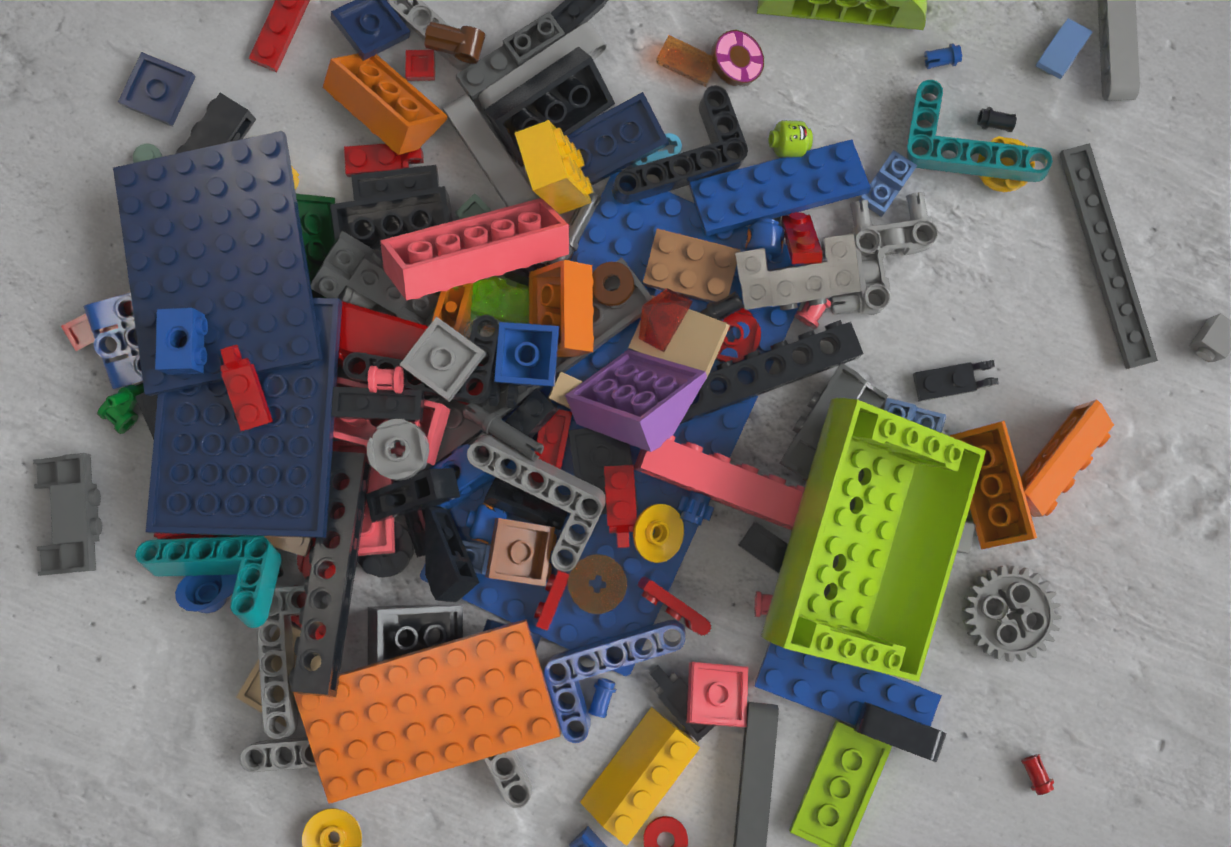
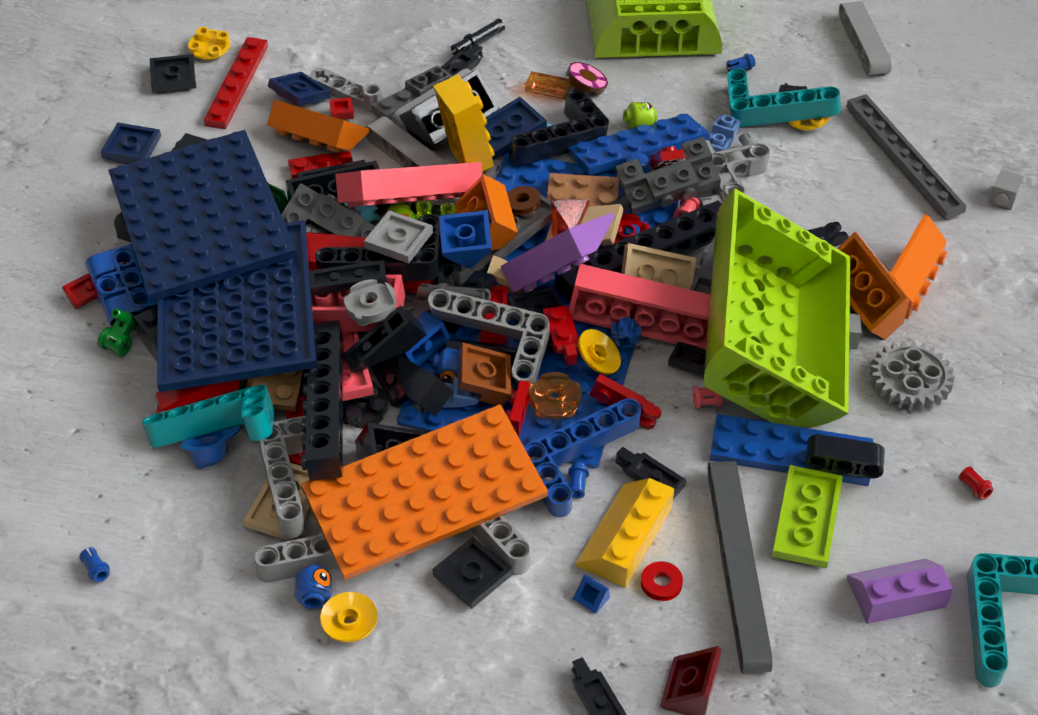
camera: 15 degrees left, 35 degrees down
(73, 514) = (82, 410): dark grey bracket -> none
(79, 723) = (97, 569): none -> blue pin
(170, 329) = (181, 247): blue brick -> none
(244, 389) = (236, 275): red hinge -> none
(299, 797) = (313, 586): none -> blue head
(385, 379) = (346, 257): coral bush -> none
(462, 43) = (376, 82): reddish brown piece -> none
(467, 801) = (472, 572): none -> black plate
(717, 694) = (679, 460): coral tile -> none
(750, 427) = (658, 266): none -> tan plate
(1064, 48) = (828, 50): medium blue slope -> none

